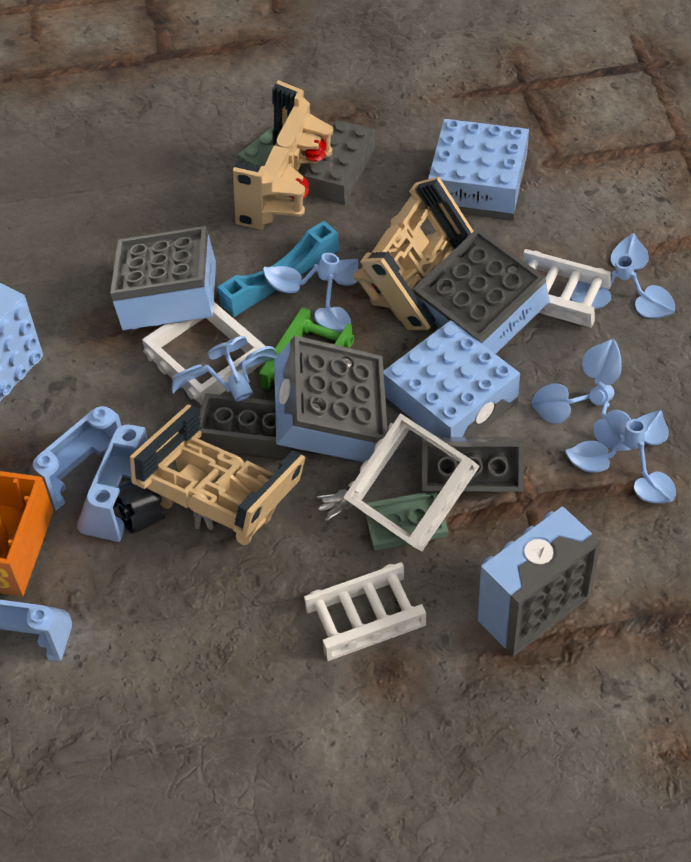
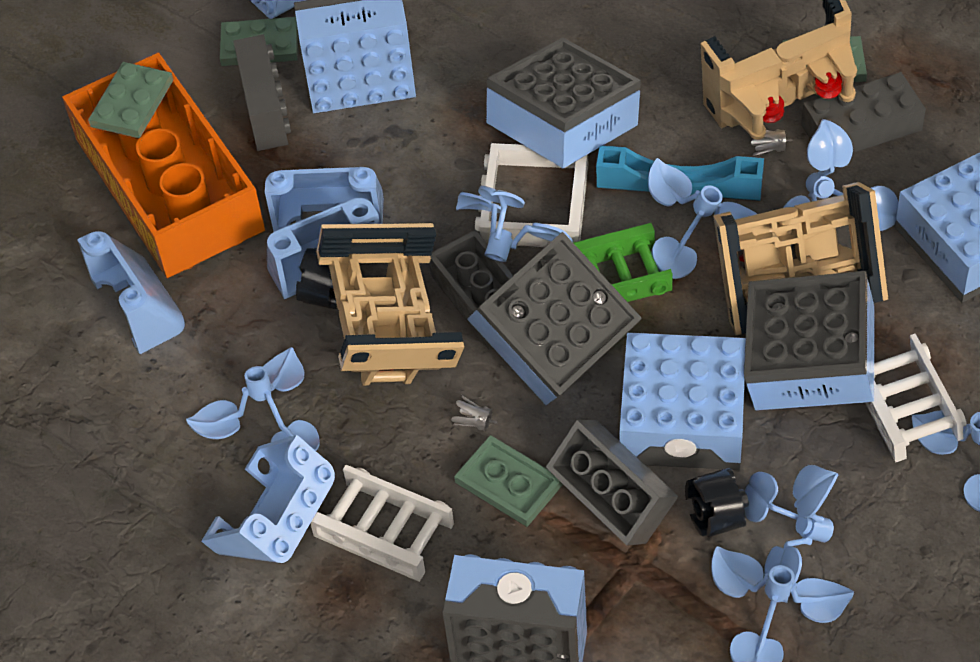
camera: 50 degrees right, 0 degrees up
(182, 588) = (280, 373): none -> light blue plant
(292, 657) = (292, 496): none -> light blue windscreen
(310, 212) = (775, 141): none -> flat silver piece
(368, 183) = (830, 148): none -> light blue plant
(442, 504) = (576, 472): white window -> none
(540, 425) = (716, 502): none -> black brick

